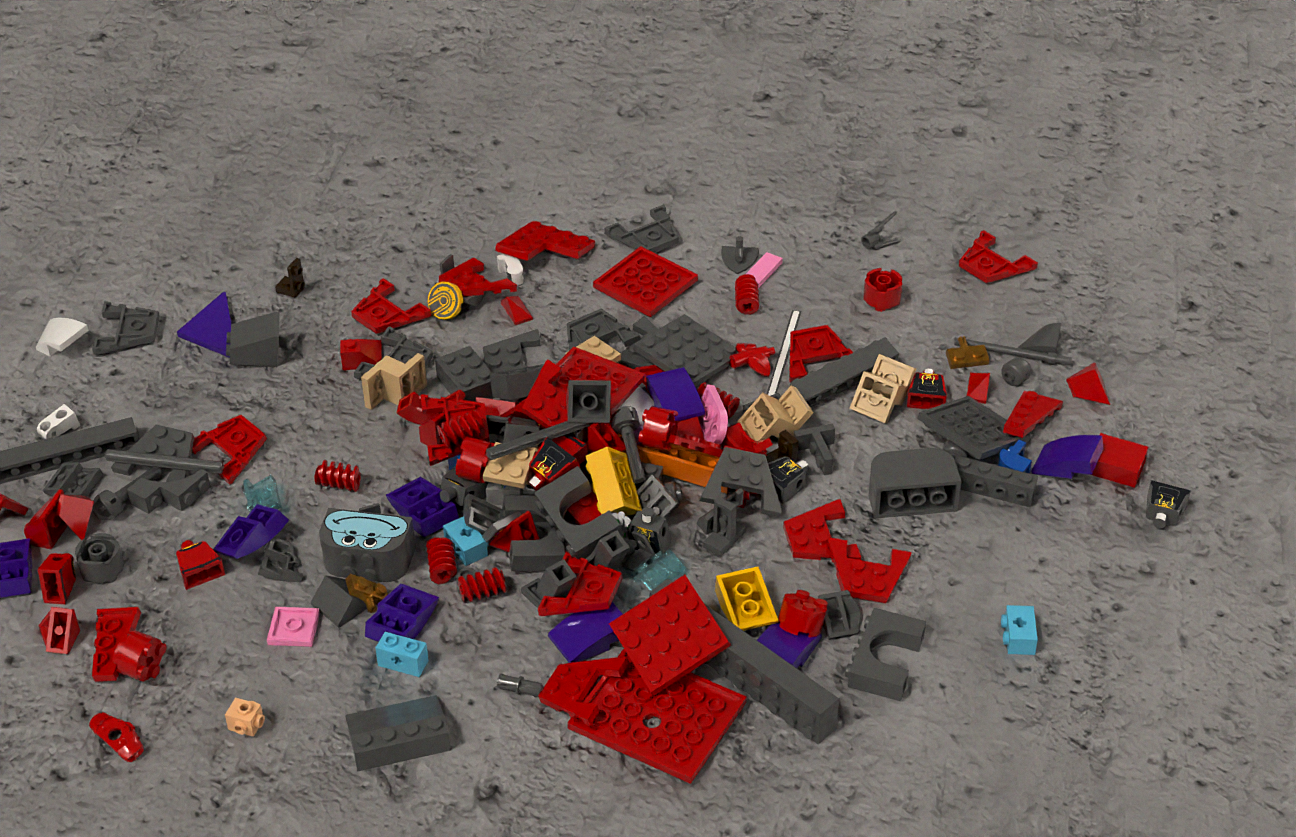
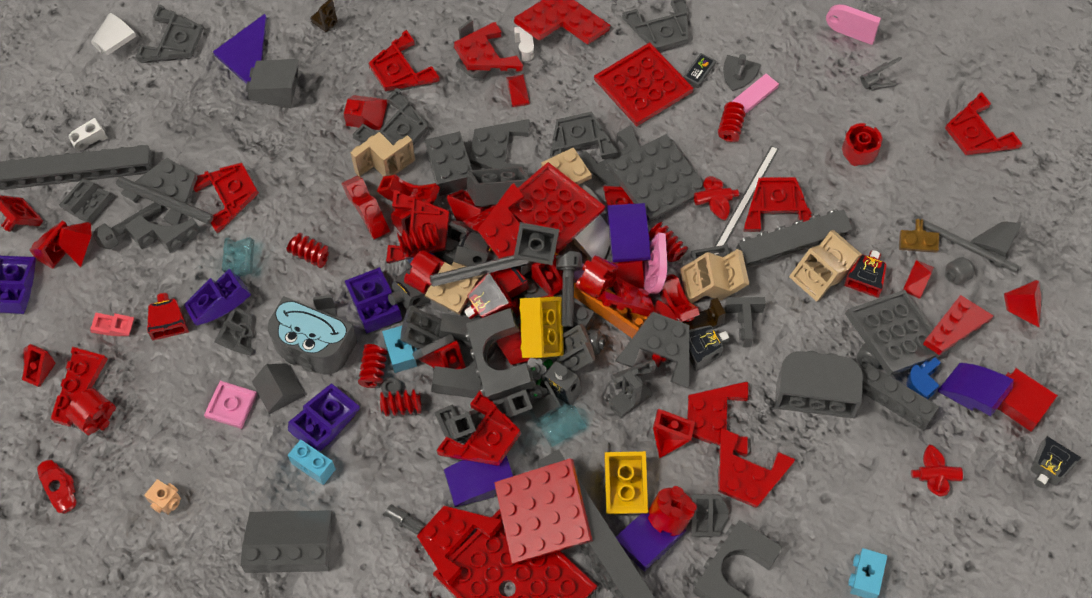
camera: 15 degrees right, 20 degrees up
(54, 571) = (46, 306): red torso -> none
(99, 558) = (85, 294): dark grey brick -> none
(142, 583) = (112, 325): none -> coral slope
(366, 590) = (298, 388): pearl gold plate -> none
(393, 428) = (366, 206): none -> red arch
(445, 300) = (453, 70): tile -> none
(699, 260) = (699, 70): none -> tile
(777, 552) = (671, 431): none -> red slope
(839, 196) = (853, 23): none -> bright pink tile
(1054, 535) = (936, 472): none -> red plant

